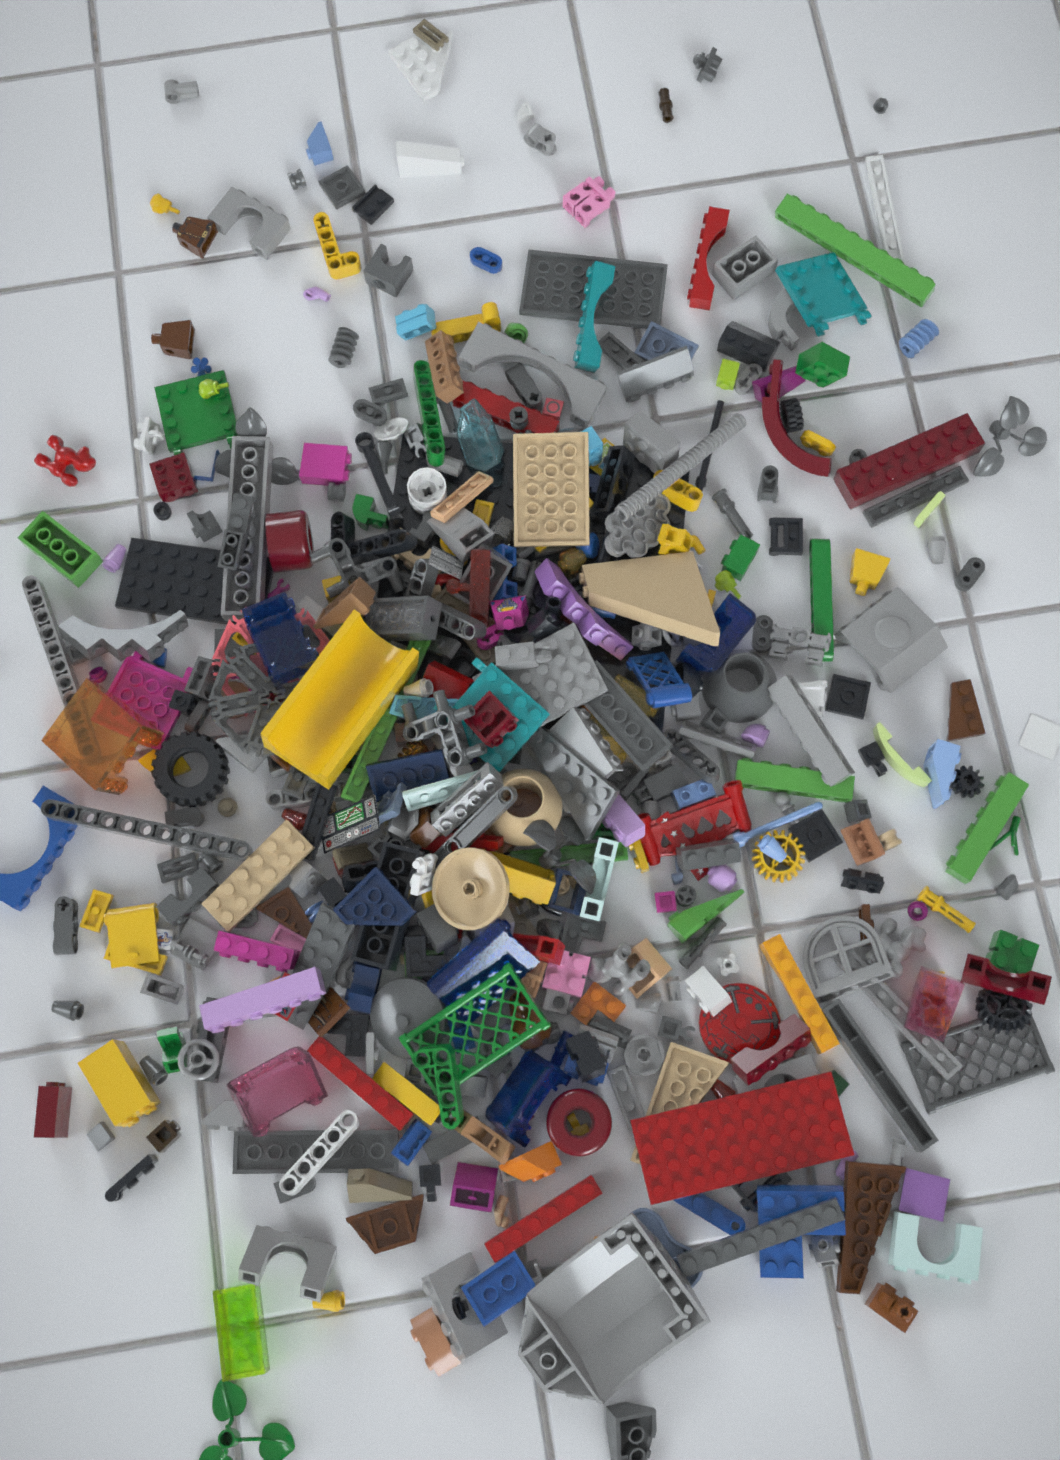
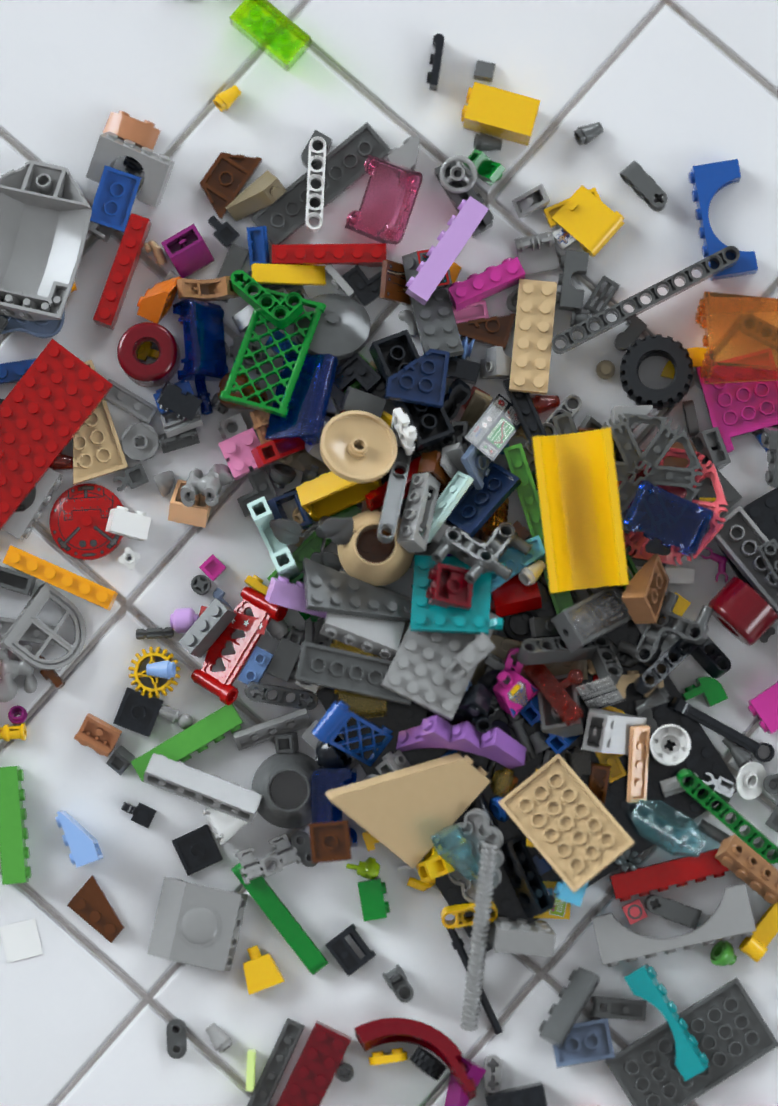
camera: 140 degrees right, 10 degrees up
(53, 1111) = (531, 57): dark red brick -> none
(94, 914) = (632, 215): yellow plate -> none
(157, 1136) = (438, 101): dark brown brick -> none
(183, 702) = (710, 417): black bracket -> none
(269, 1243) = (301, 98): light grey arch -> none
(336, 491) = (748, 689): dark grey wheel -> none
(363, 987) = (383, 318): dark blue brick -> none
(411, 527) = (657, 697): none -> dark grey cone
(500, 508) = (599, 780): none -> reddish brown plate
(518, 422) = (648, 869): dark grey wheel -> none
(597, 999) = (207, 454): orange plate -> none
(650, 536) = (454, 849): none -> clear light blue slope
(673, 988) = (159, 511): light grey pin -> none
(687, 960) = (160, 582): dark grey pin -> none
(693, 919) = (181, 568): bright green wedge -> none
(727, 374) = (512, 1061): lime brick -> none
(728, 508) = (417, 937): dark grey pin -> none
(742, 608) = (330, 841): none -> reddish brown tile
(743, 837) = (192, 664): medium blue piece -> none
(753, 888) = (154, 633): none -> dark grey axle
(753, 1064) = (54, 495): arch -> none
(756, 734) = (245, 758): lavender piece -> none
(871, 882) = (69, 708): black hinge -> none
(889, 839) = (78, 754): tan wheel -> none
(915, 776) = (143, 833): yellowish green slope -> none
(972, 778) = (50, 857): black gear -> none

